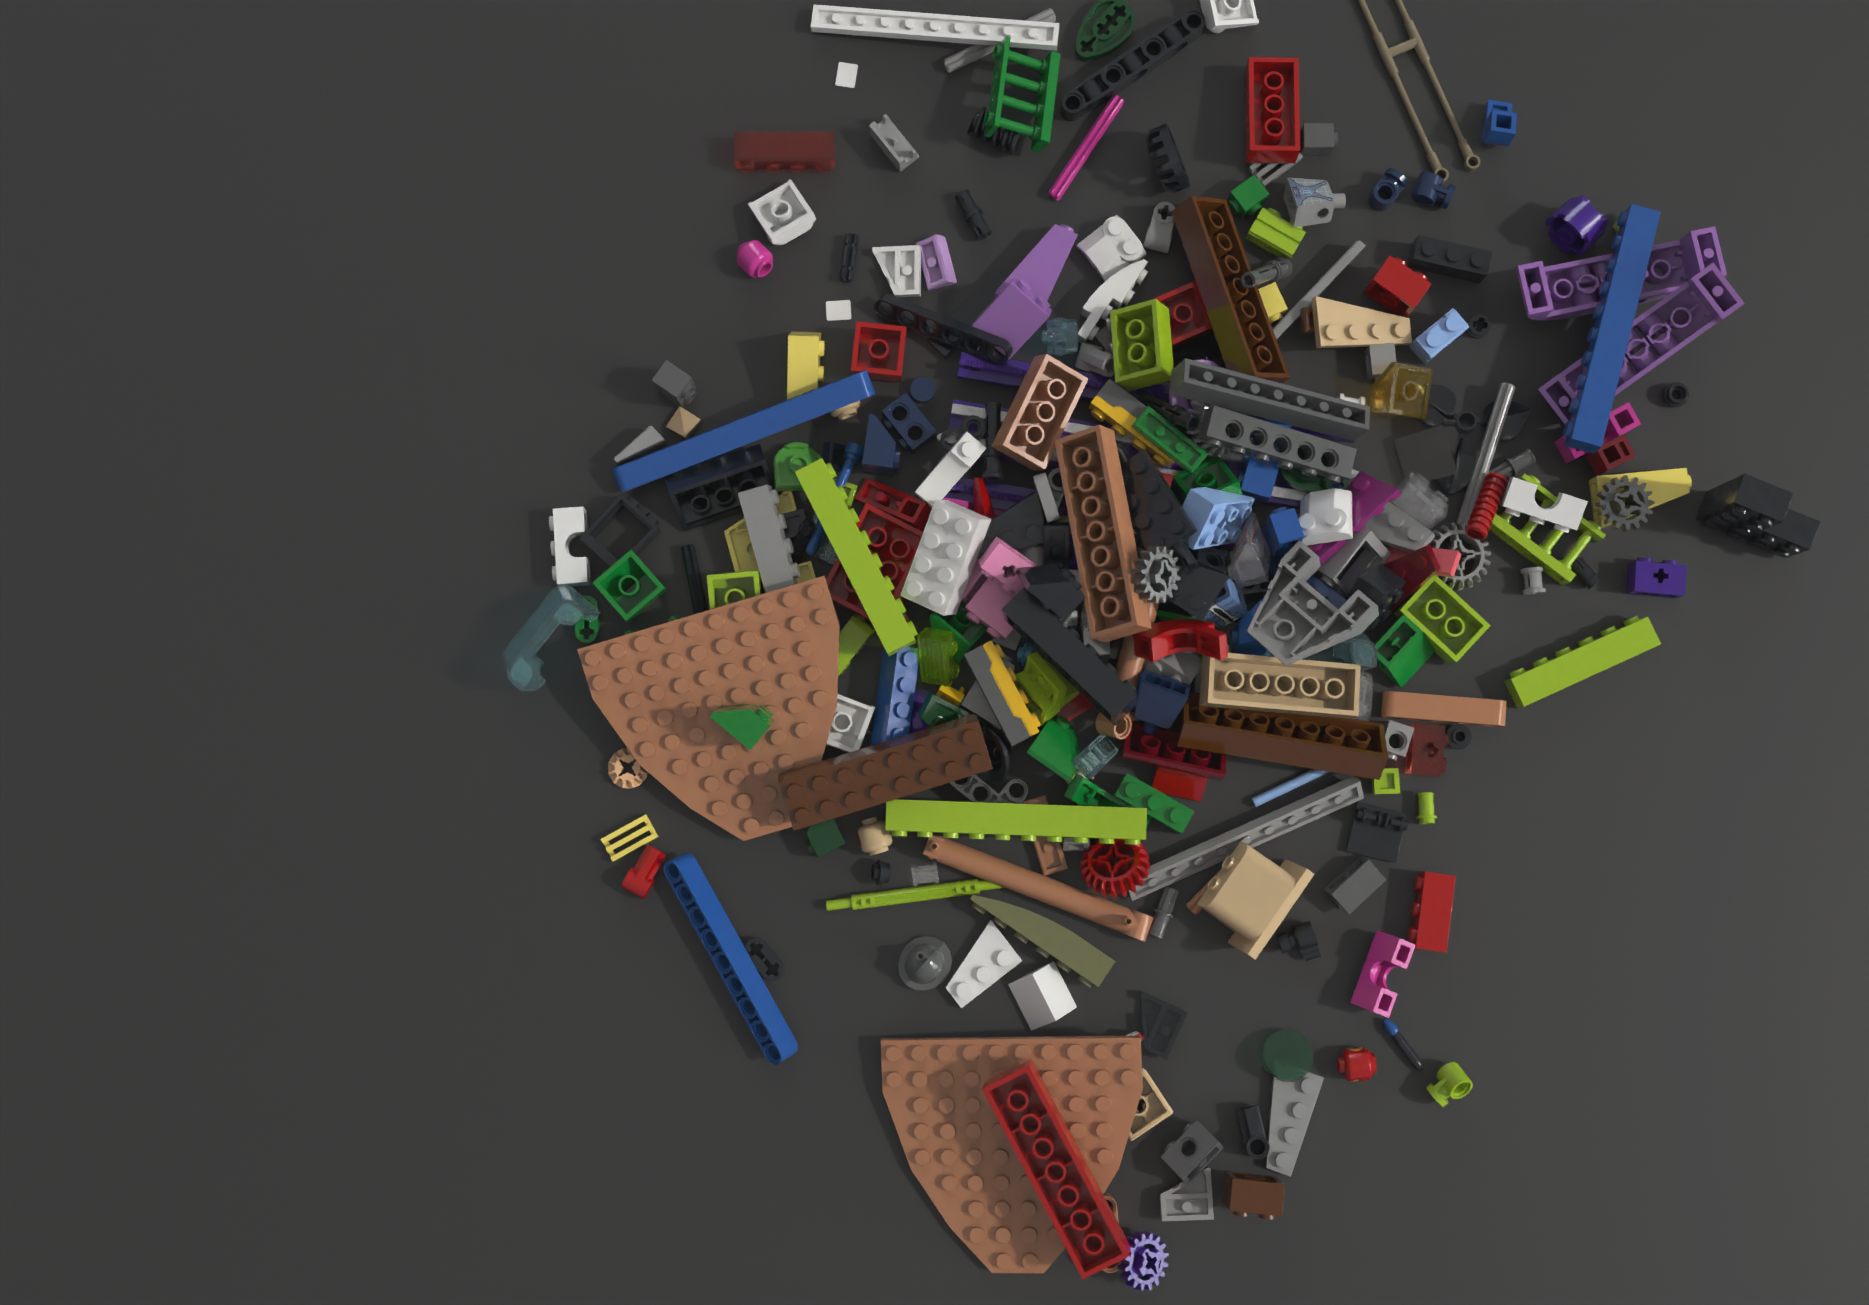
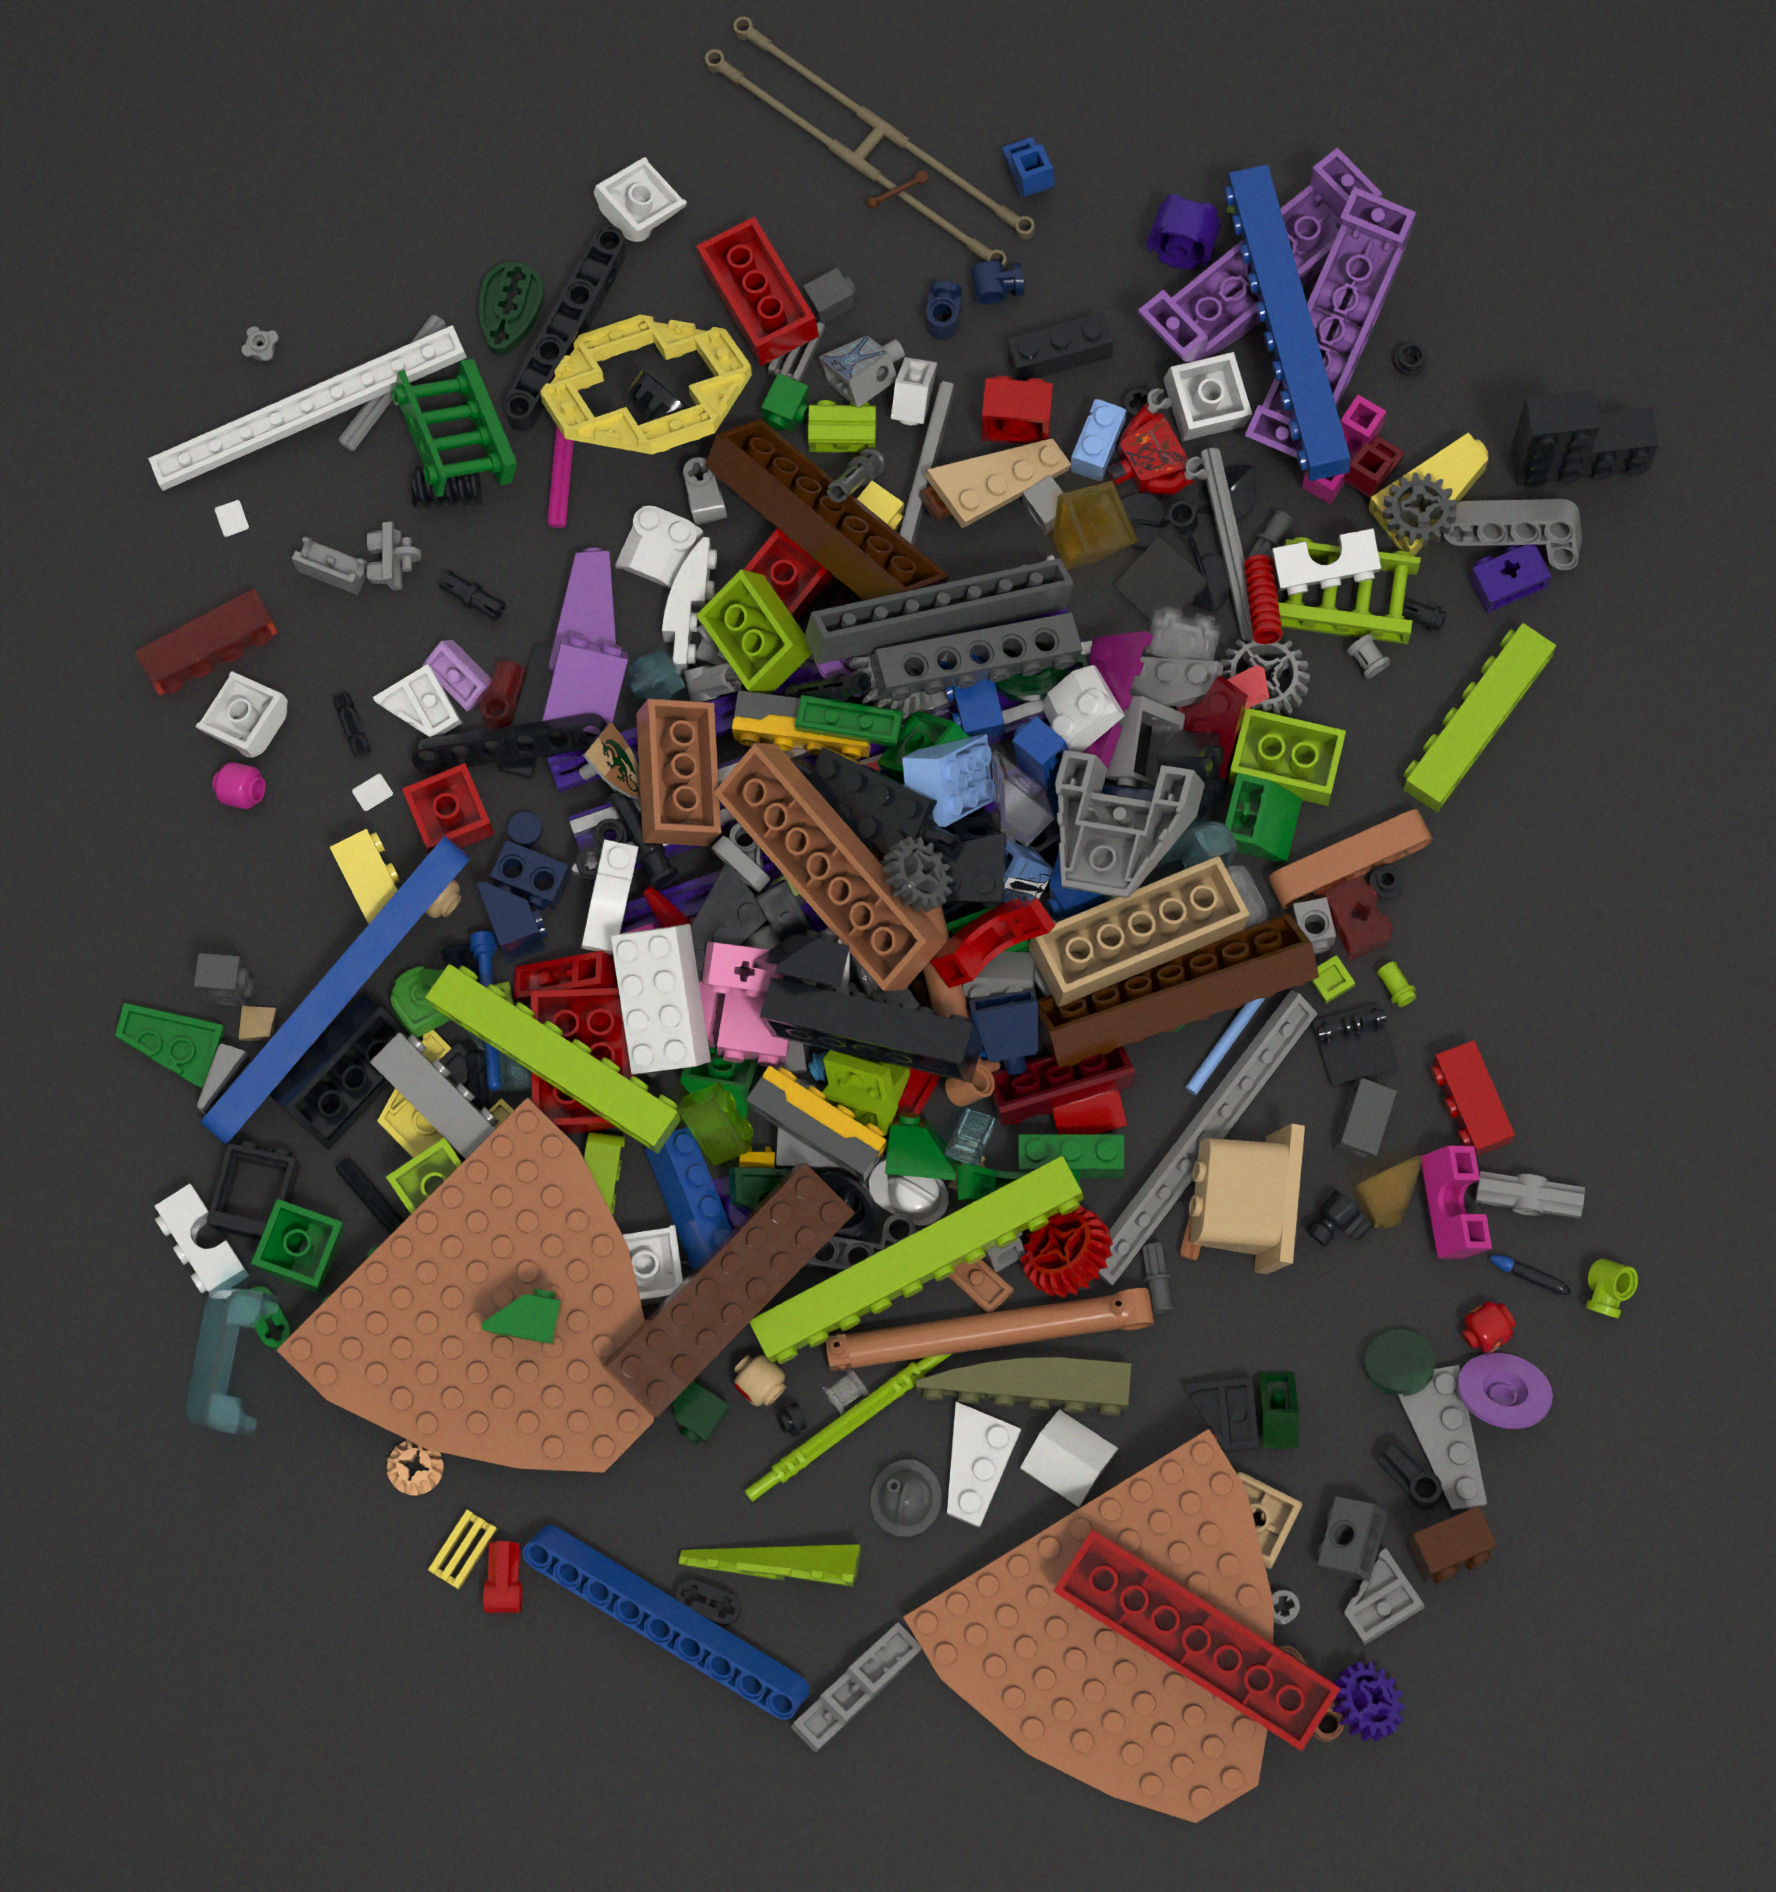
camera: 20 degrees left, 10 degrees down
(623, 405) = (172, 1040): none -> green wing
(827, 1066) = (856, 1687): none -> light grey slope
(840, 972) = (816, 1563): none -> lime wedge
(938, 160) = (396, 556): none -> light grey hips
(957, 292) = (503, 694): none -> clear red piece
(1001, 381) = (614, 762): none -> shield
(1035, 774) = (917, 1197): none -> white piece
(1127, 1174) = (1292, 1613): none -> light grey bush
(1128, 156) = (618, 428): none -> light yellow plate
(1192, 1041) = (1278, 1410): none -> dark green slope
(1336, 235) = (913, 391): none -> white slope
(1343, 943) = (1389, 1193): none -> clear yellow slope
(1344, 1113) = (1505, 1390): none -> medium lavender hat
(1423, 91) = (921, 178): none -> reddish brown hinge
(1433, 994) = (1530, 1194): none -> light grey piece
(1470, 366) = (1153, 453): none -> red torso
(1528, 347) = (1207, 396): none -> white brick
(1685, 549) = (1521, 523): none -> light grey beam

